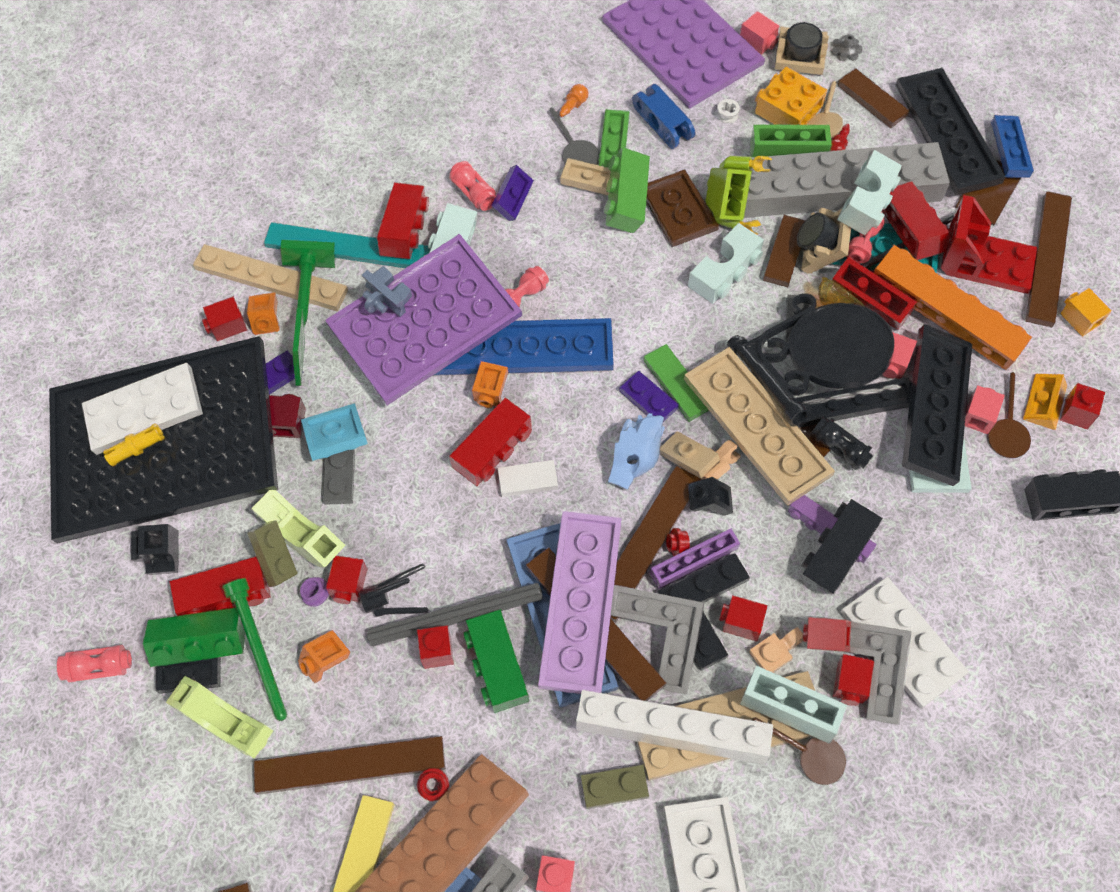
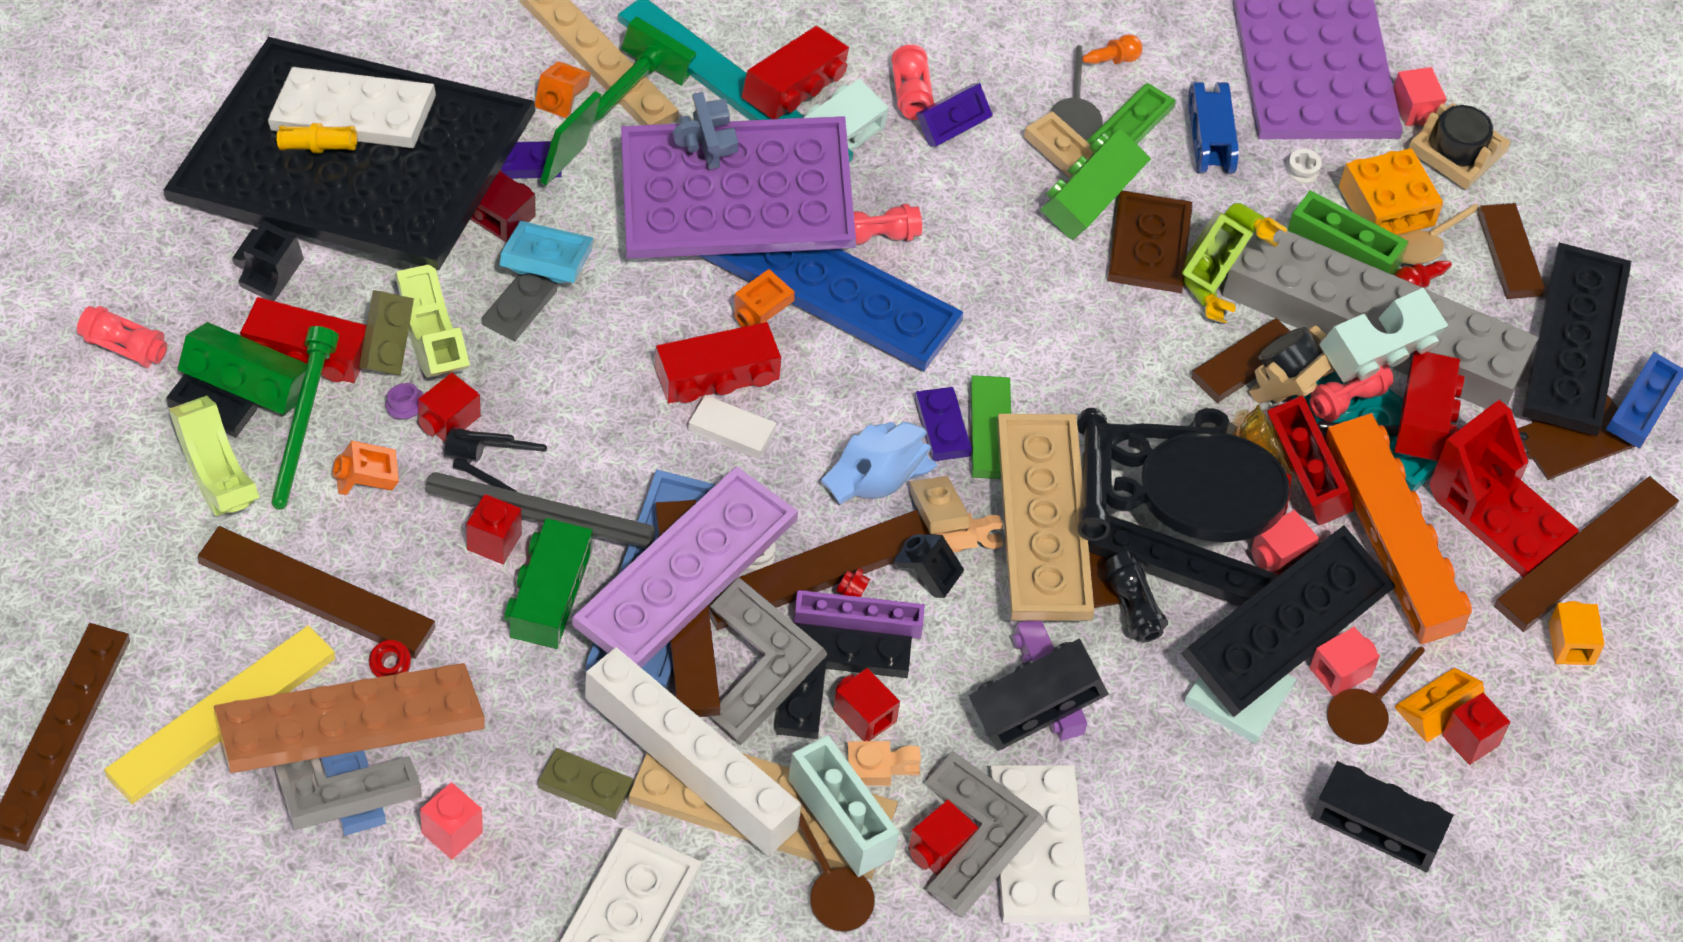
camera: 25 degrees right, 10 degrees down
(224, 319) = (512, 69): red brick -> none
(714, 278) = (1127, 340): light aqua arch -> none
(827, 634) = (946, 769): brick -> none
(847, 47) = (1526, 175): flat silver plant -> none

